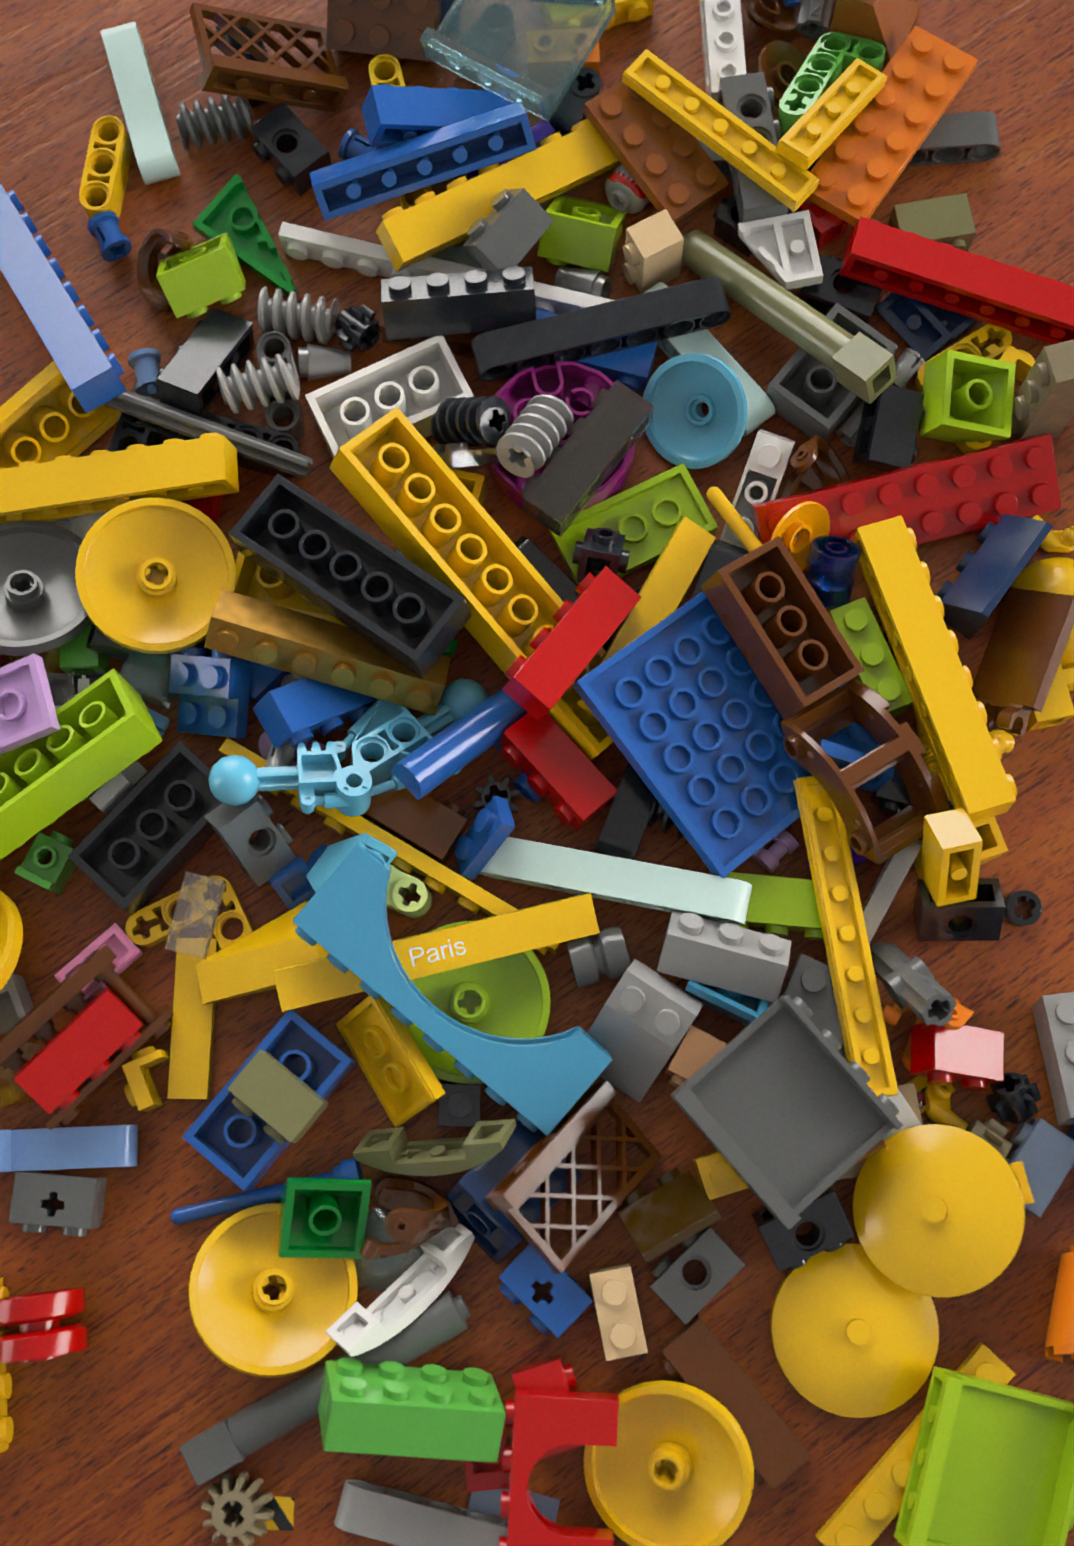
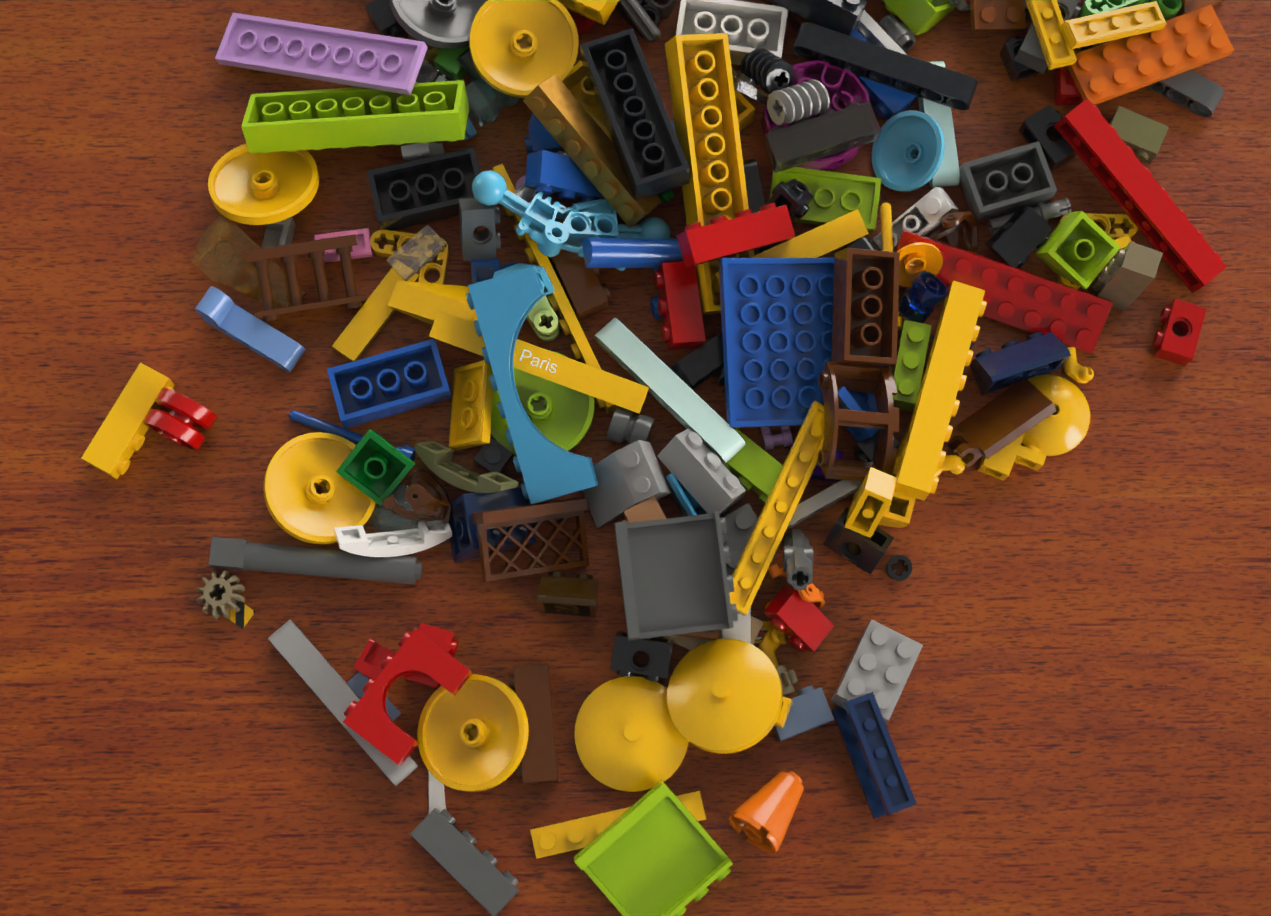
camera: 25 degrees right, 0 degrees up
(33, 1202) = (226, 348): dark grey brick -> none
(55, 873) = (350, 177): bright green brick -> none
(79, 1052) = (301, 284): red brick -> none
(141, 1087) = (321, 329): yellow bracket -> none
(211, 692) = (511, 131): blue plate -> none
(277, 1098) = (394, 381): olive brick -> none
(410, 1411) = (352, 600): bright green brick -> none
(484, 837) = (610, 317): blue plate -> none
(496, 787) = (631, 294): black gear -> none
(548, 1316) = (475, 608): blue brick -> none
(618, 1312) = (504, 630): tan brick -> none
(652, 251) = (949, 40): tan brick -> none
(689, 1298) = (578, 647): dark grey brick -> none
(717, 1176) = (611, 596): yellow brick -> none
(785, 248) = (1031, 88): white wing -> none
(856, 359) = (1019, 177): olive brick -> none
(923, 325) = (1087, 192): dark blue slope -> none
(1014, 1098) = (815, 667): black gear -> none

